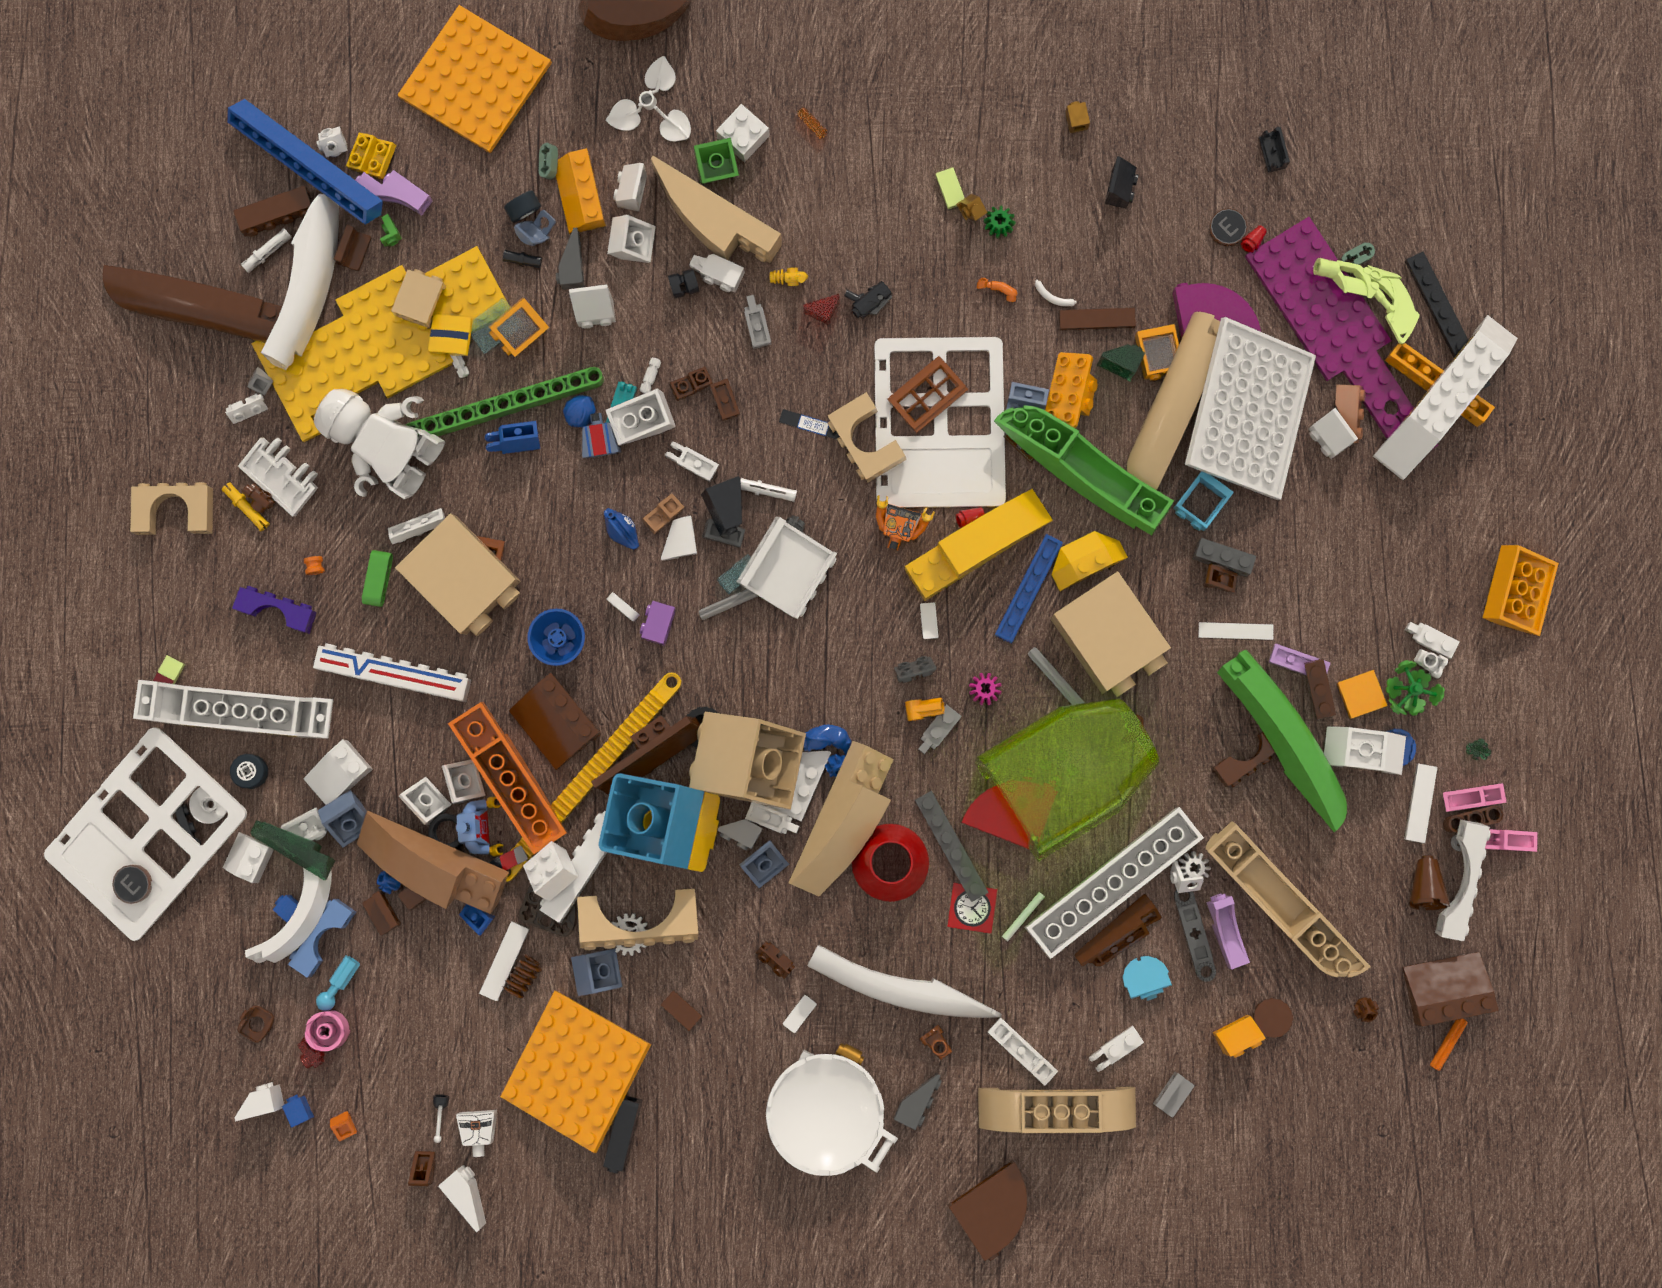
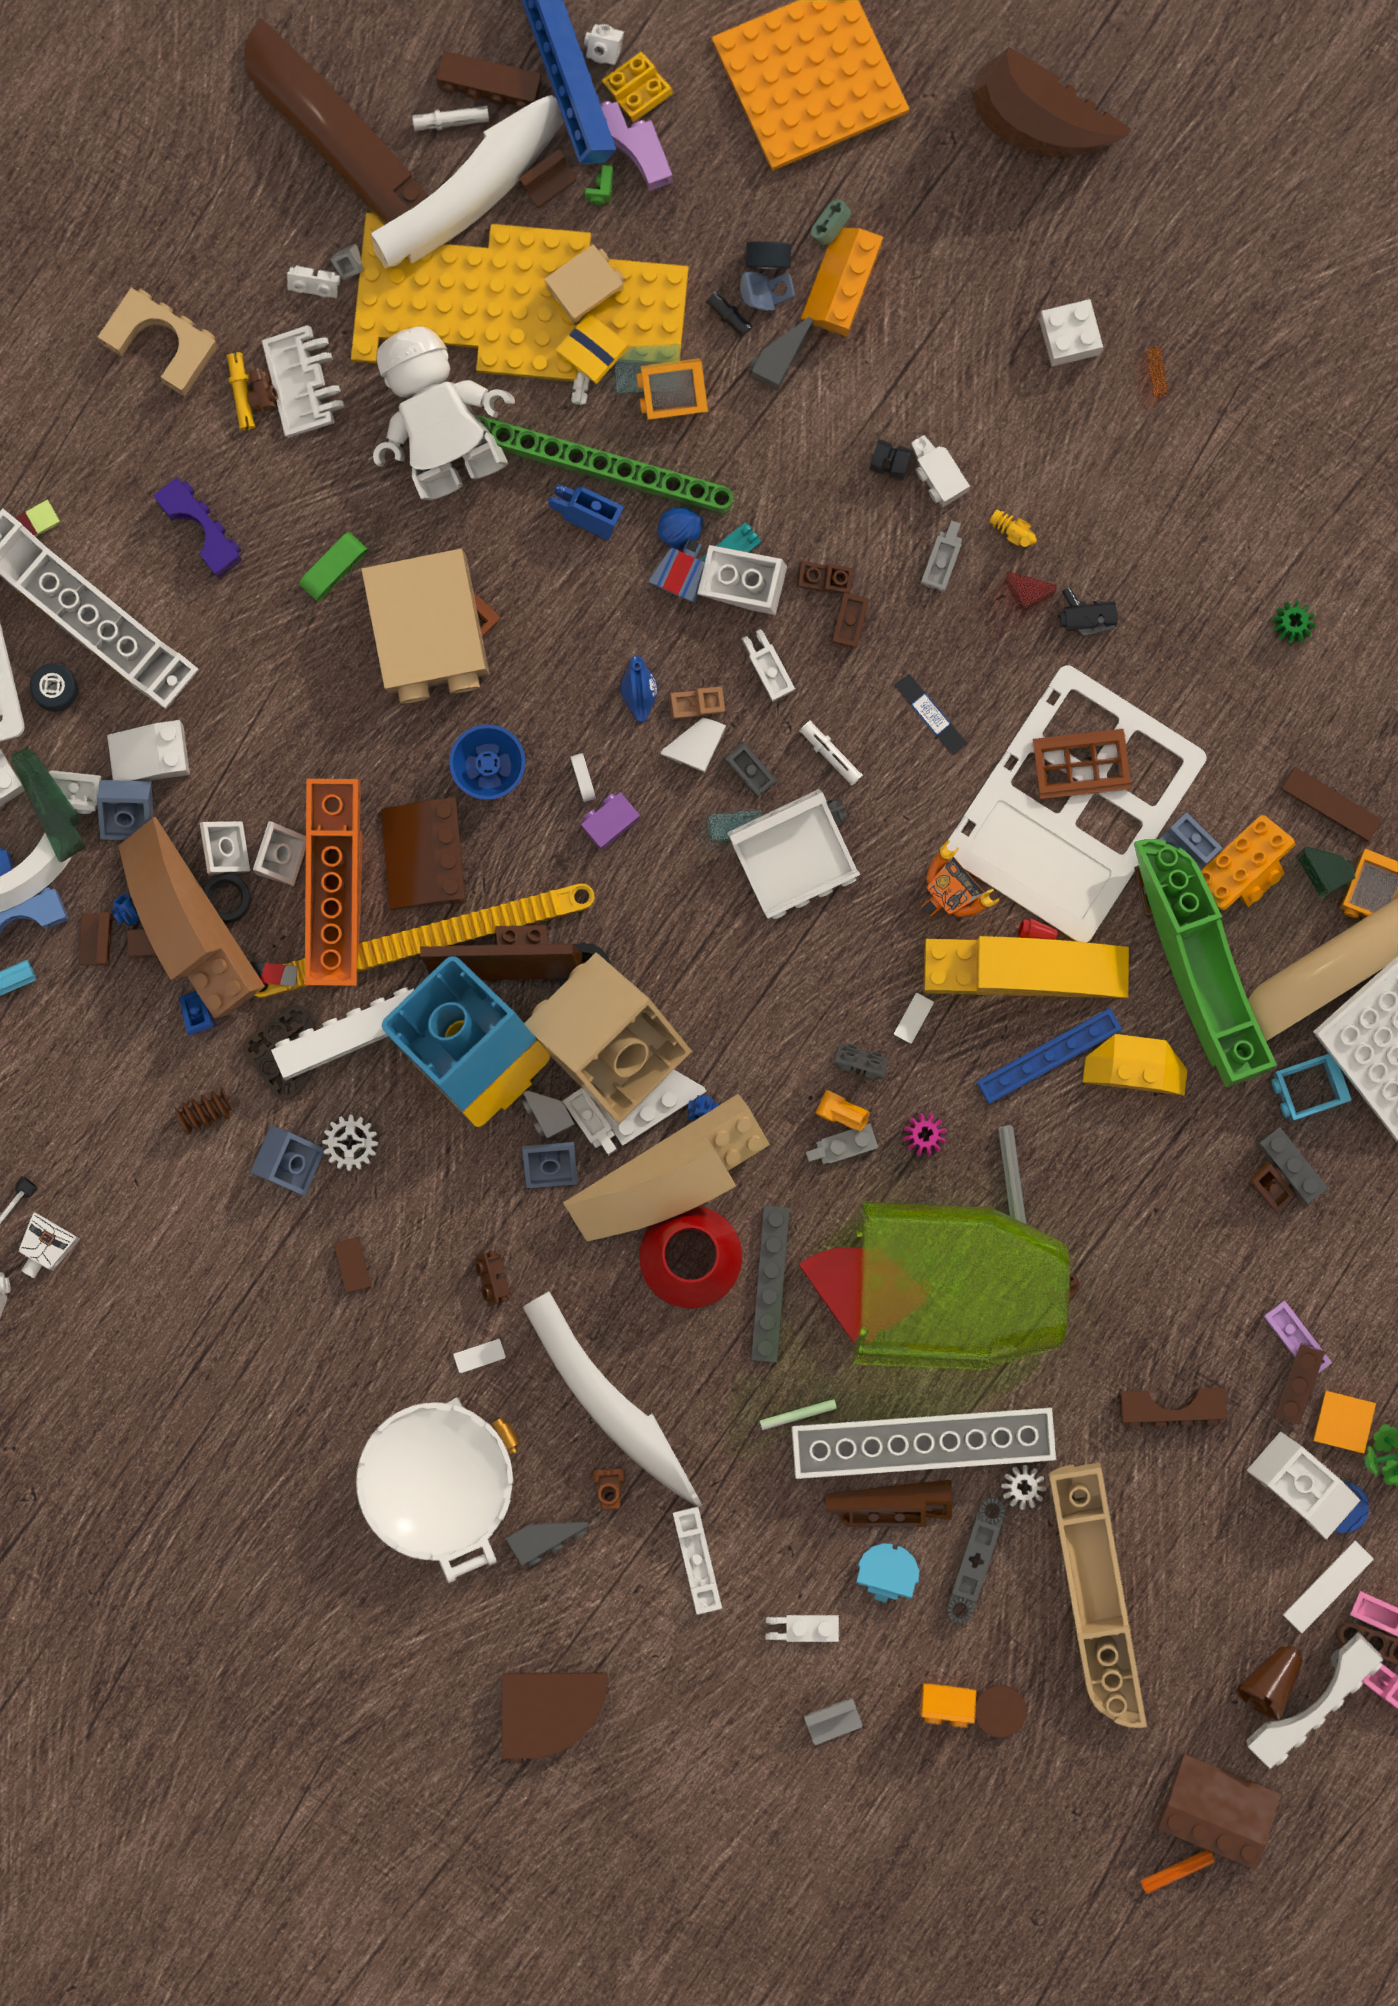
camera: 30 degrees right, 0 degrees up
(314, 565) = (273, 506): orange wheel -> none
(391, 673) = (280, 683): white brick -> none
(415, 526) = (414, 537): white plate -> none
(474, 829) = (258, 913): medium blue torso -> none
(504, 961) = (195, 1081): white tile -> none
(550, 871) = (311, 1015): white brick -> none
(575, 1071) = (194, 1252): light orange plate -> none
(593, 306) = (772, 420): white slope -> none
(599, 932) = (319, 1116): tan arch -> none
(622, 1134) = (199, 1354): black slope -> none
(625, 112) = (953, 224): white plant -> none
(631, 186) = (904, 312): white slope -> none
(631, 239) = (865, 371): white slope -> none
(650, 375) = (785, 538): white axle -> none
(714, 219) = (973, 412): tan slope -> none
(715, 160) = (1018, 345): bright green slope -> none
(725, 505) = (771, 738): black slope -> none
(726, 604) = (700, 850): light grey axle -> none
(826, 735) = (714, 1069): blue animal -> none
(869, 463) = (967, 734): tan arch -> none
(950, 187) = (1264, 548): yellowish green tile -> none
(971, 207) = (1272, 586): pearl gold brick -> none
(972, 915) = (743, 1376): sticker -> none
(999, 286) = (1253, 711): orange arm -> none
(1051, 298) = (1295, 747): white piece -> none
(1057, 1110) = (693, 1649): tan slope -> none
(1111, 635) = (1105, 1168): tan brick -> none
(1182, 884) = (998, 1494): white bracket -> none
(1227, 930) = (1013, 1580): lavender arch -> none
(1236, 631) = (1250, 1257): white sticker -> none
(1288, 736) = (1227, 1412): bright green slope -> none
(1366, 1009) = (1109, 1771): reddish brown gear -> none

